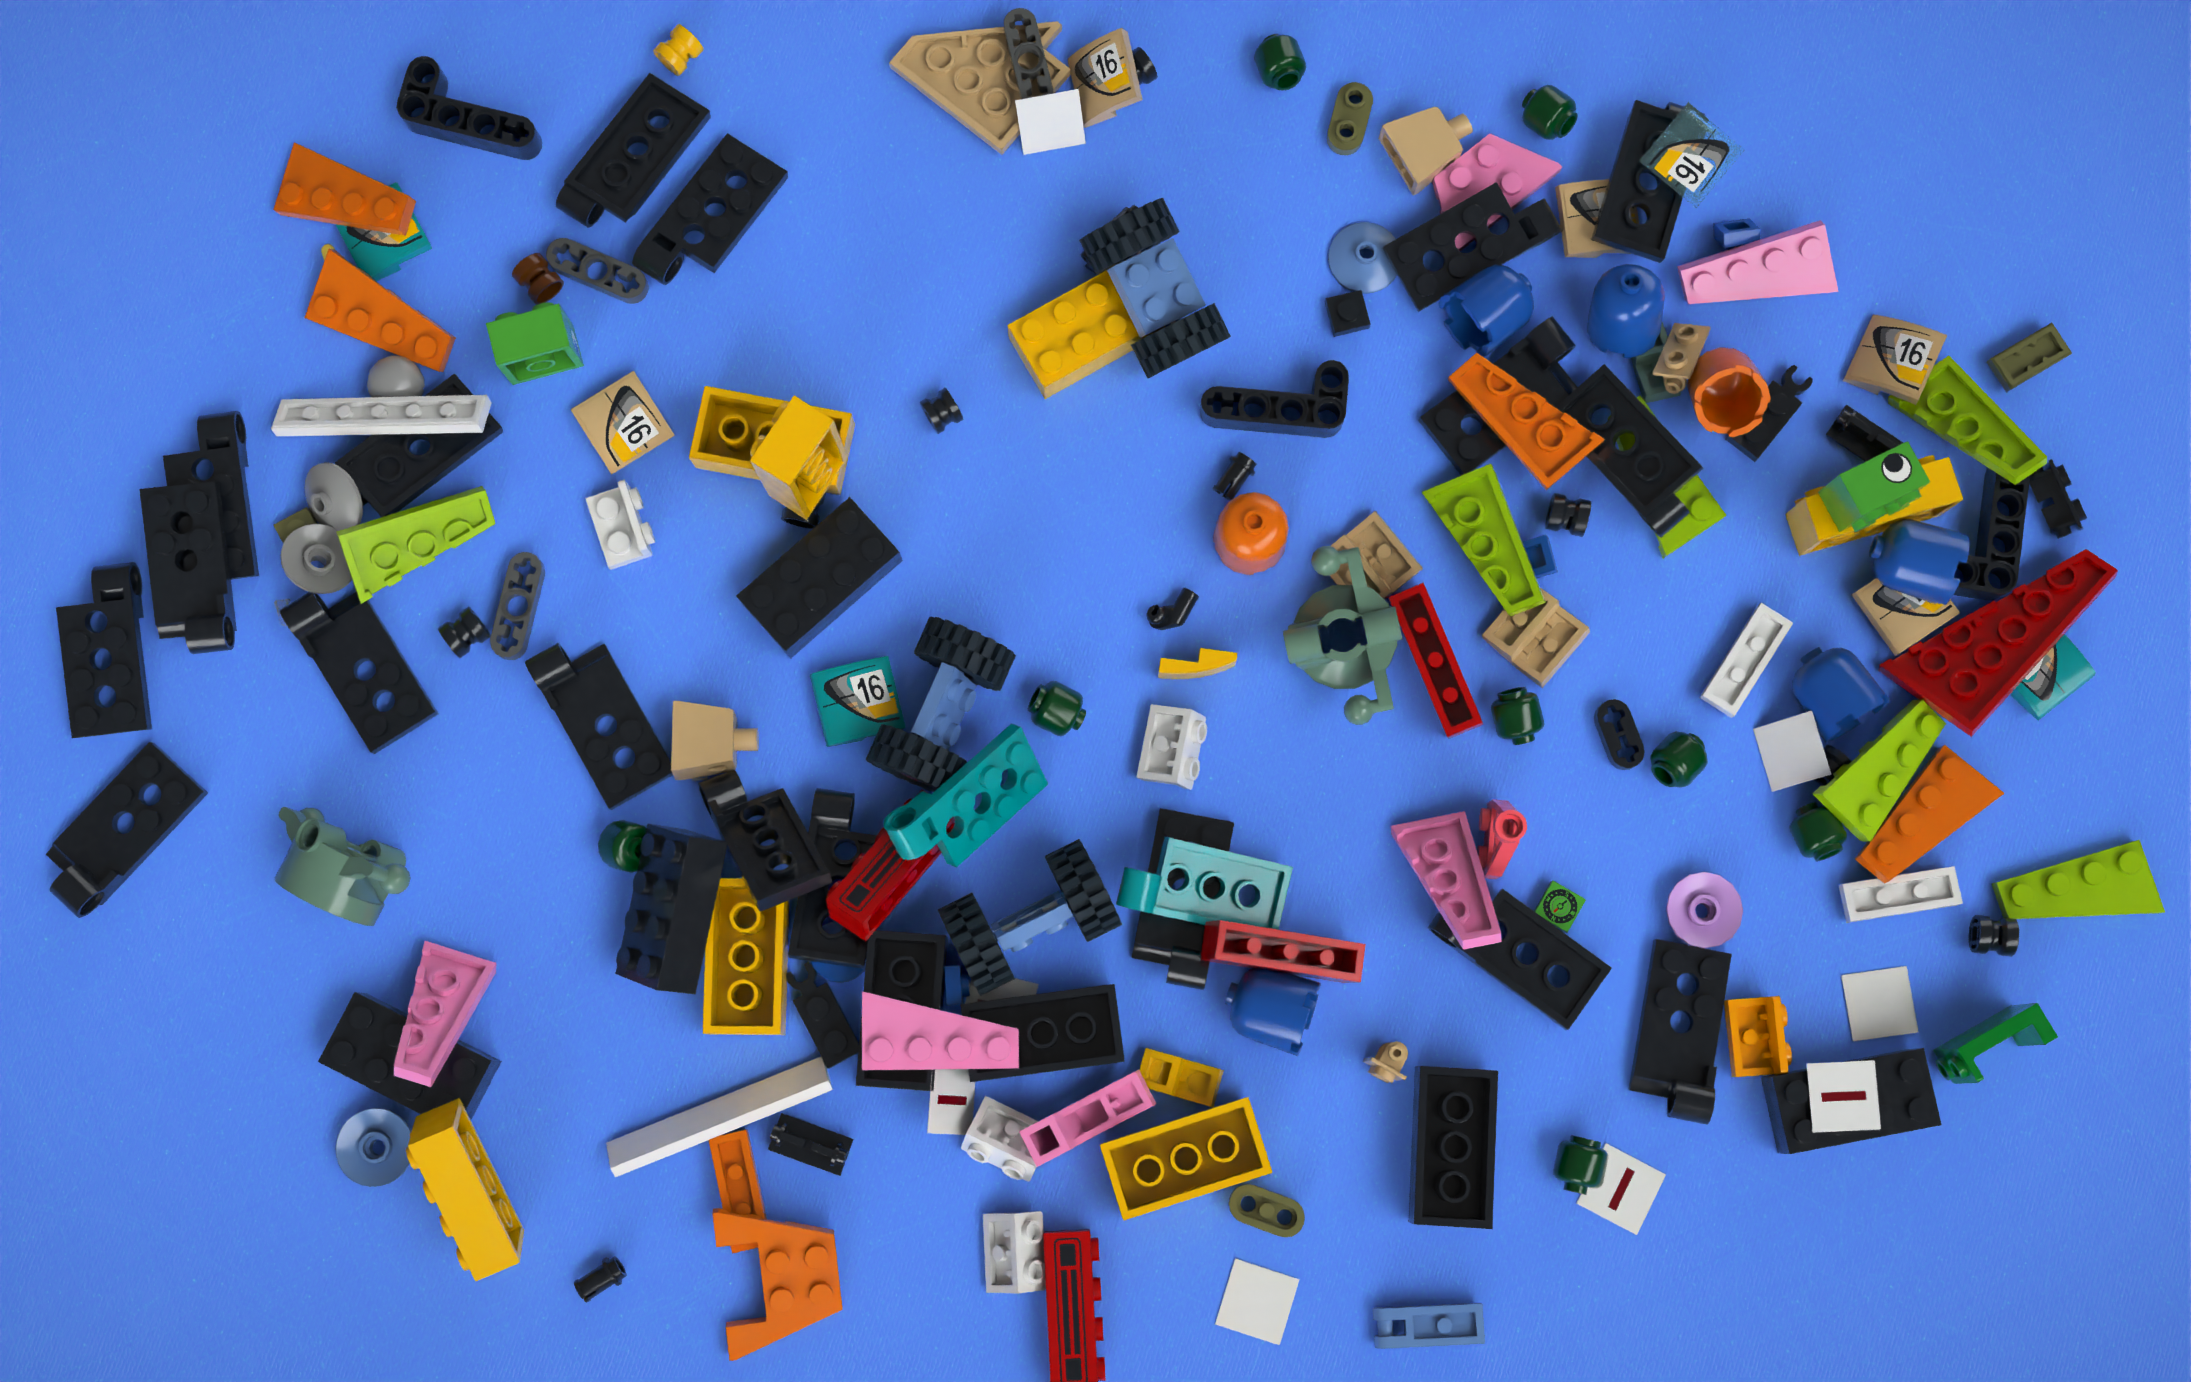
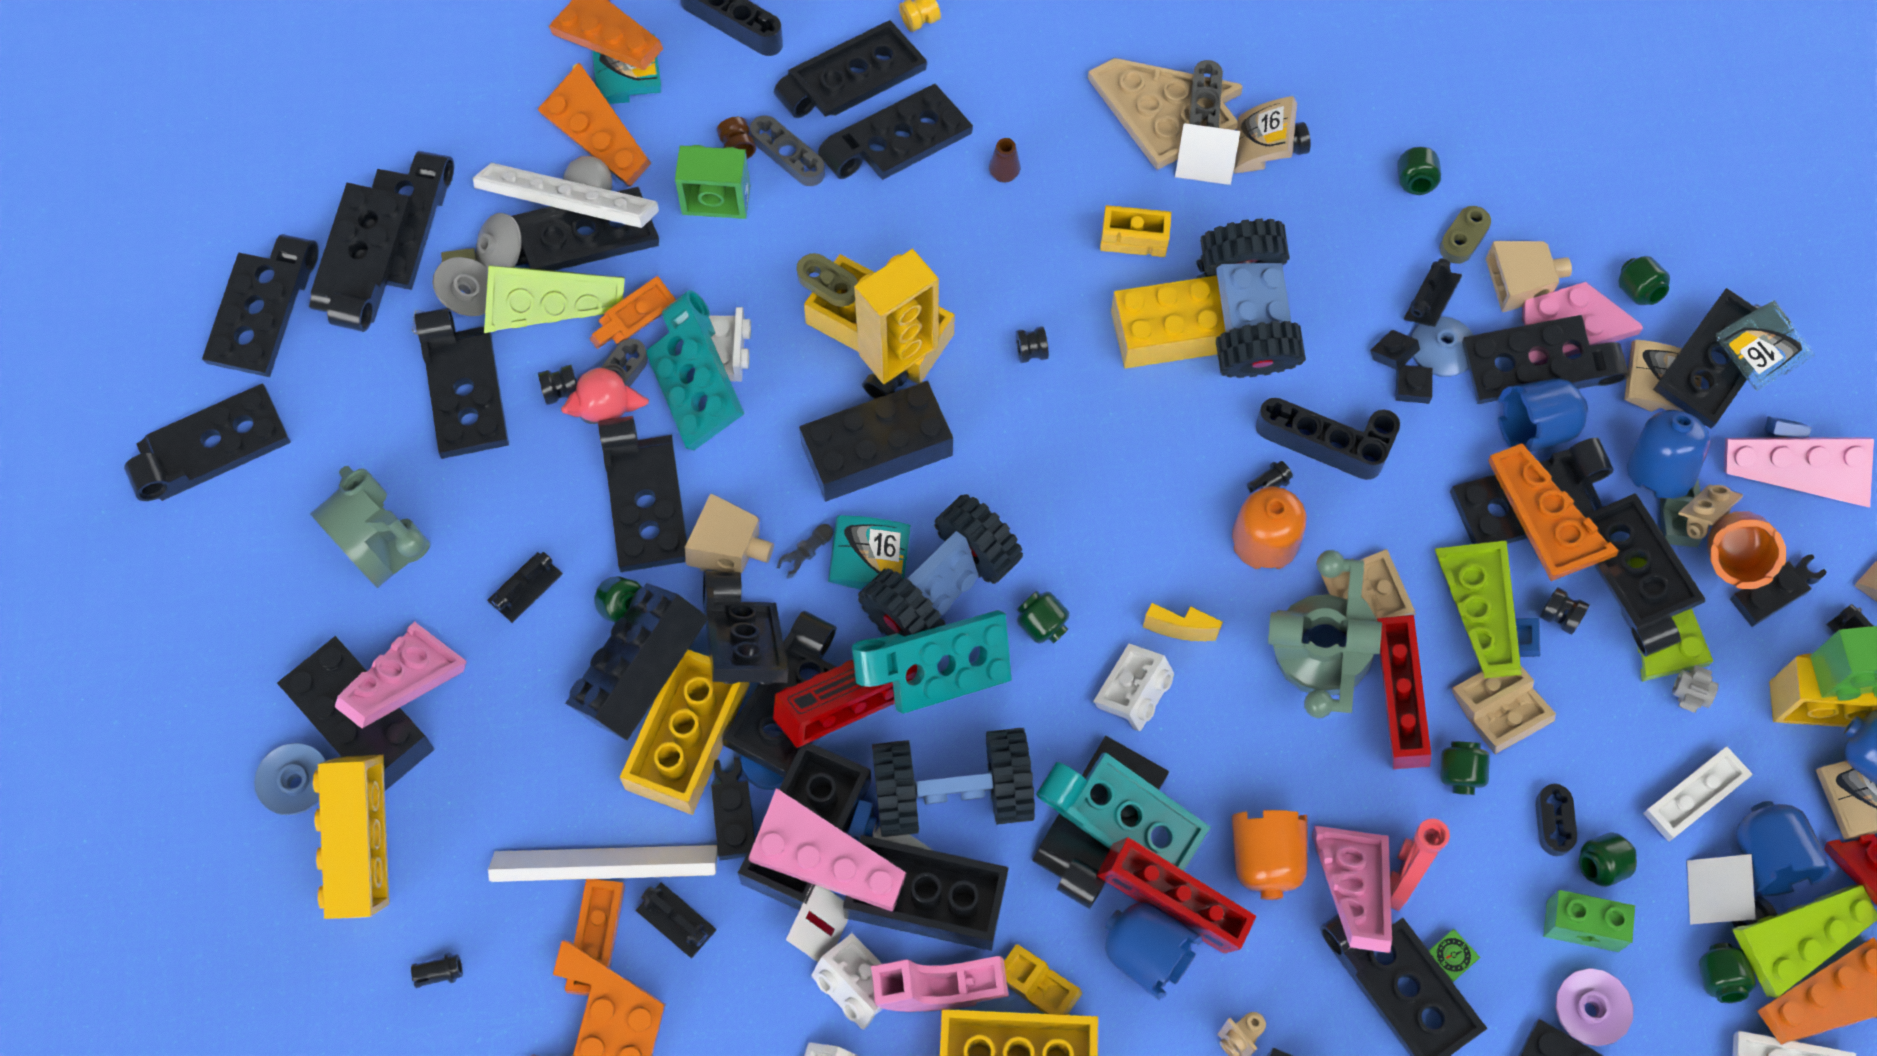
camera: 20 degrees right, 15 degrees down
(510, 523) = (633, 313): none -> orange hinge
(517, 633) = (602, 396): none -> coral piece
(521, 863) = (525, 586): none -> black hinge
(575, 516) = (690, 321): none -> teal hinge
(622, 422) = (760, 268): slope -> none
(706, 424) = (830, 280): none -> olive plate
(792, 718) = (807, 548): none -> clear smoke piece
(838, 206) = (1005, 161): none -> cone
(1005, 242) = (1135, 231): none -> yellow brick
(1172, 615) = (1175, 577): black arm -> none
(1317, 282) = (1395, 350): none -> black plate
(1337, 205) = (1433, 294): none -> black hinge
(1358, 873) = (1270, 852): none -> orange cylinder
(1677, 828) = (1589, 921): none -> bright green brick
(1716, 553) = (1695, 688): none -> light grey gear

